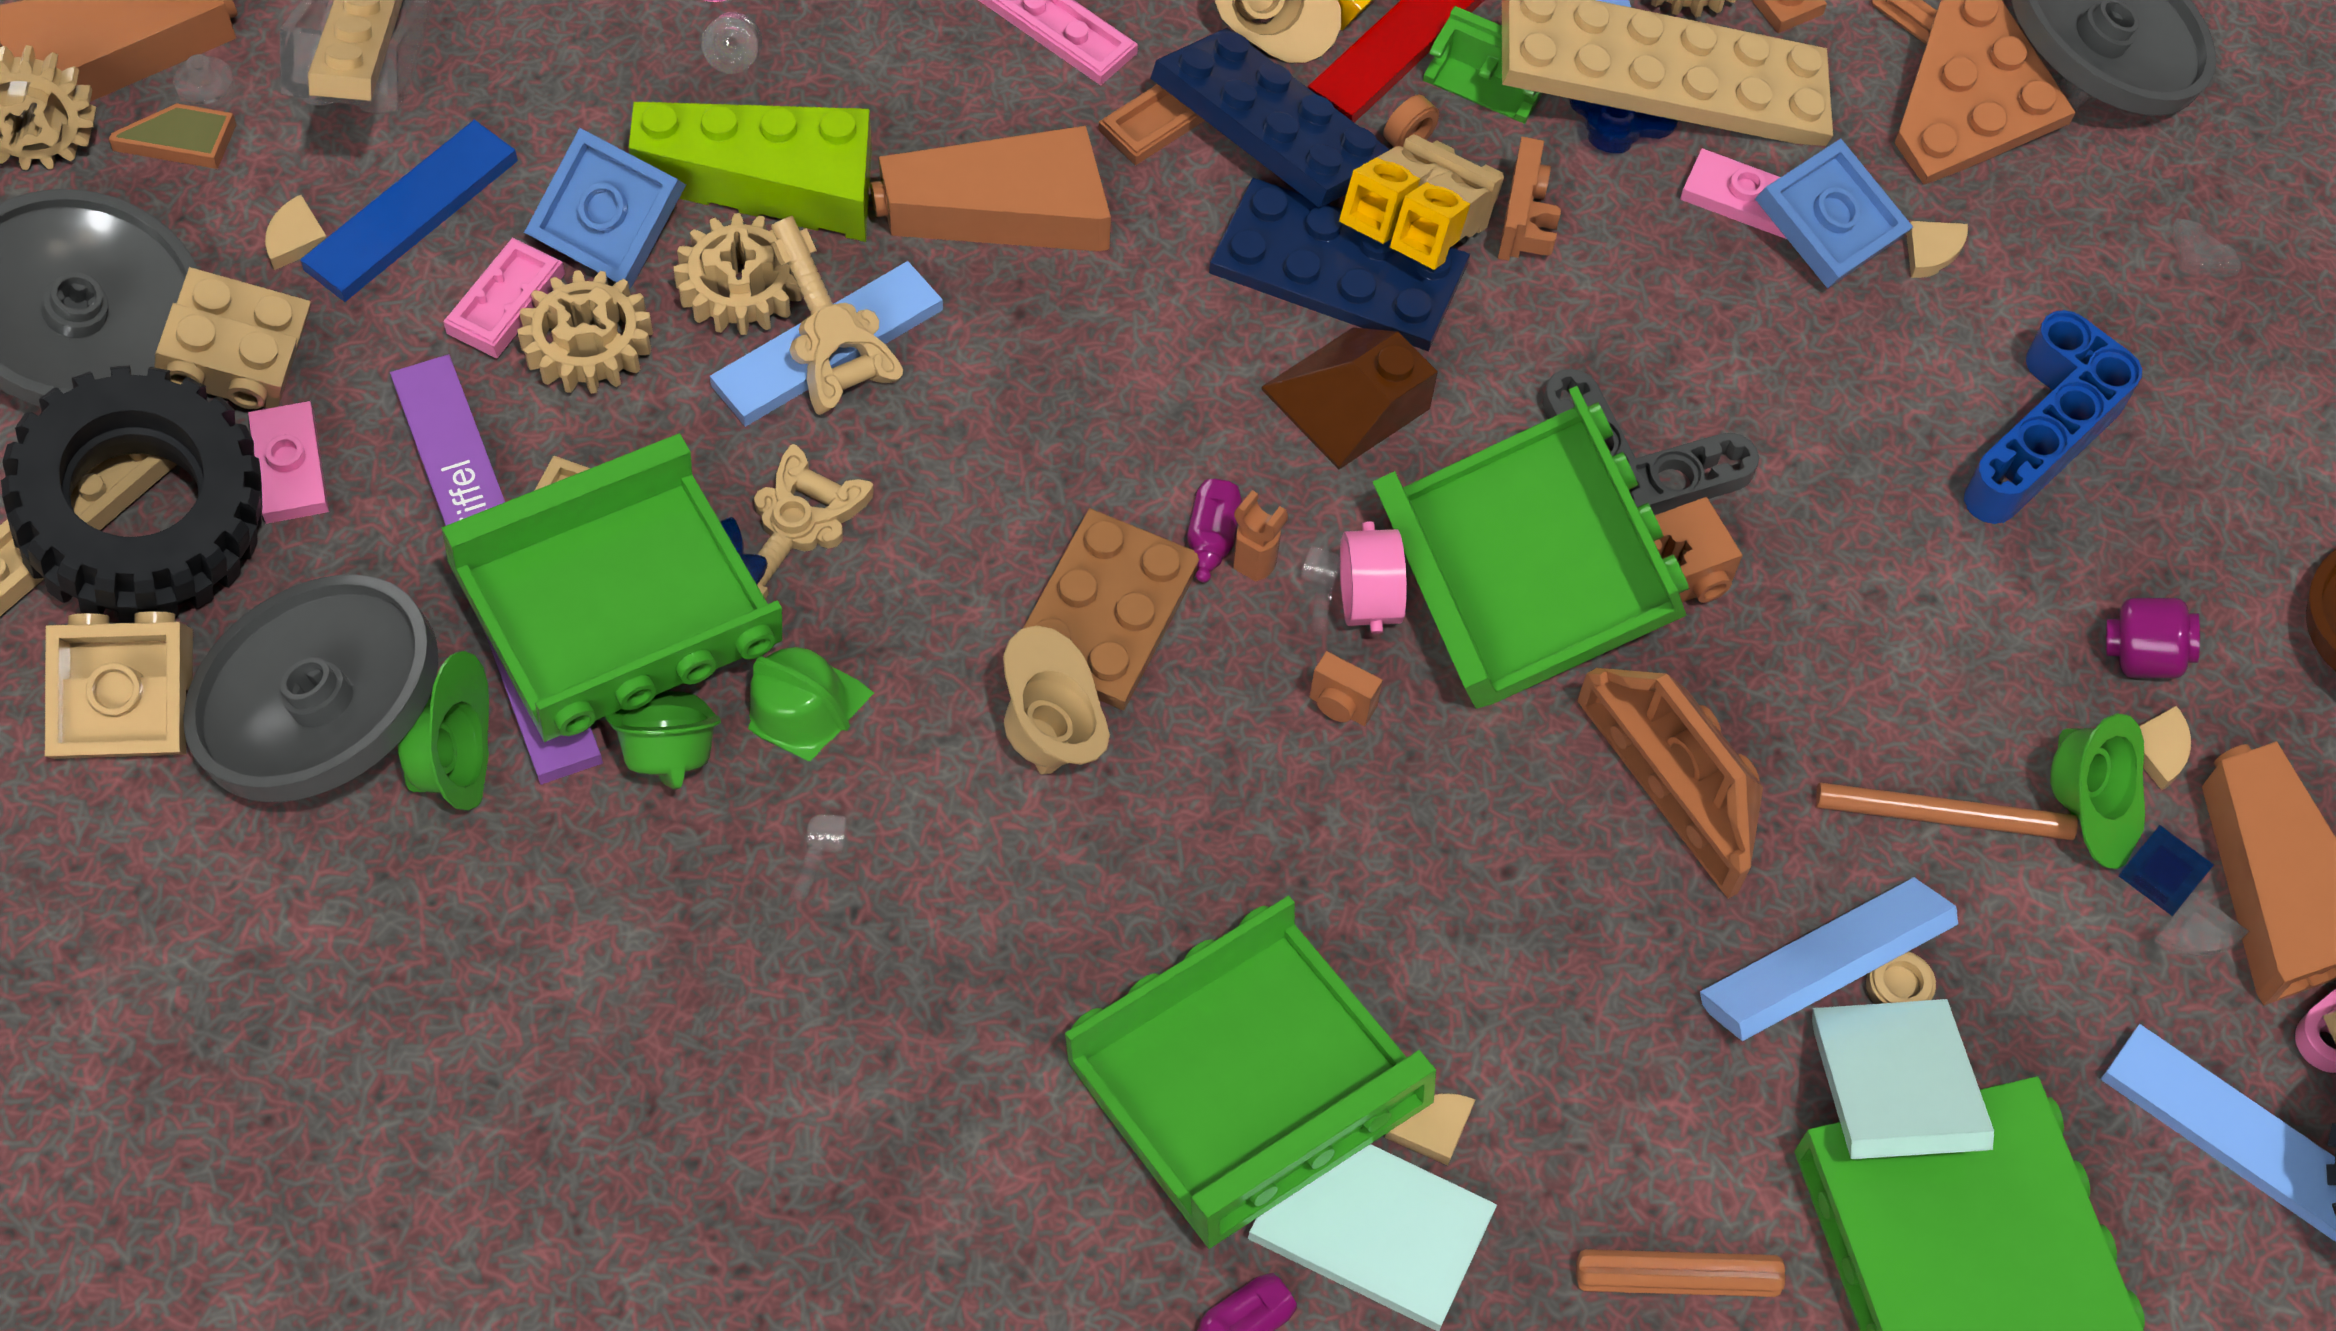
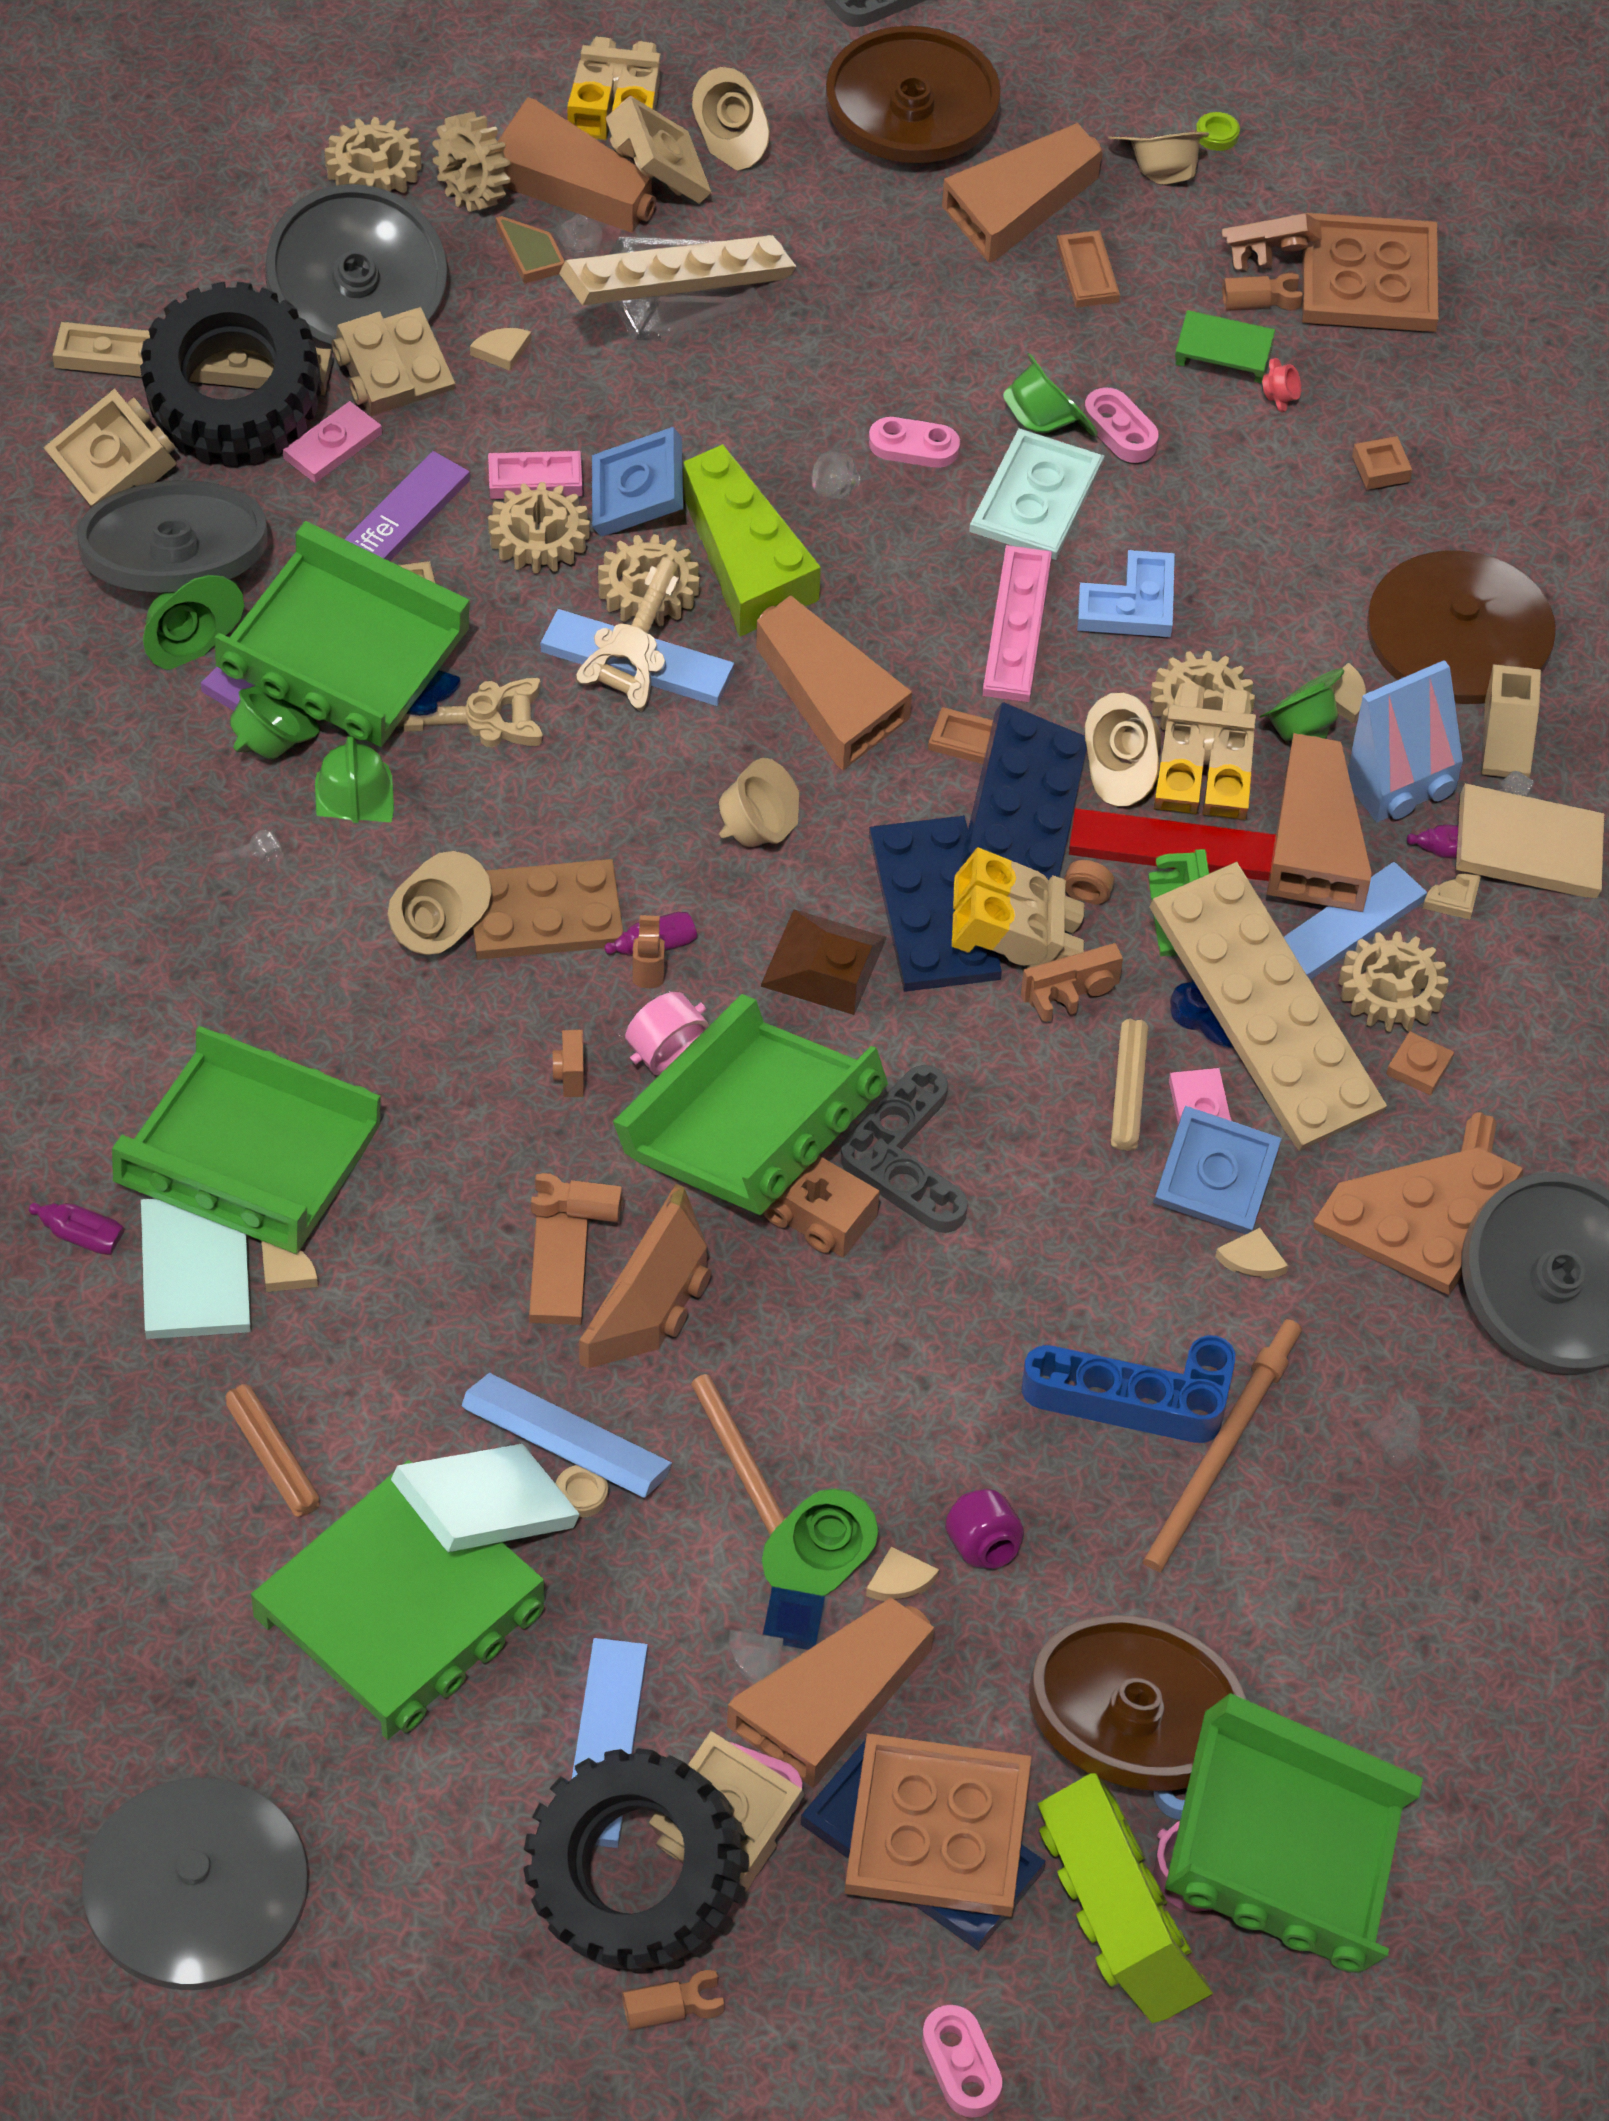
camera: 60 degrees right, 5 degrees down
(409, 210) = (567, 392): blue tile -> none
(1122, 345) = (760, 805): none -> tan piece
(1540, 775) = (577, 1199): none -> nougat bar
(1579, 839) = (558, 1269): none -> nougat tile
(1671, 230) = (1129, 1085): none -> tan axle
(2074, 298) = (1267, 1368): none -> nougat bar

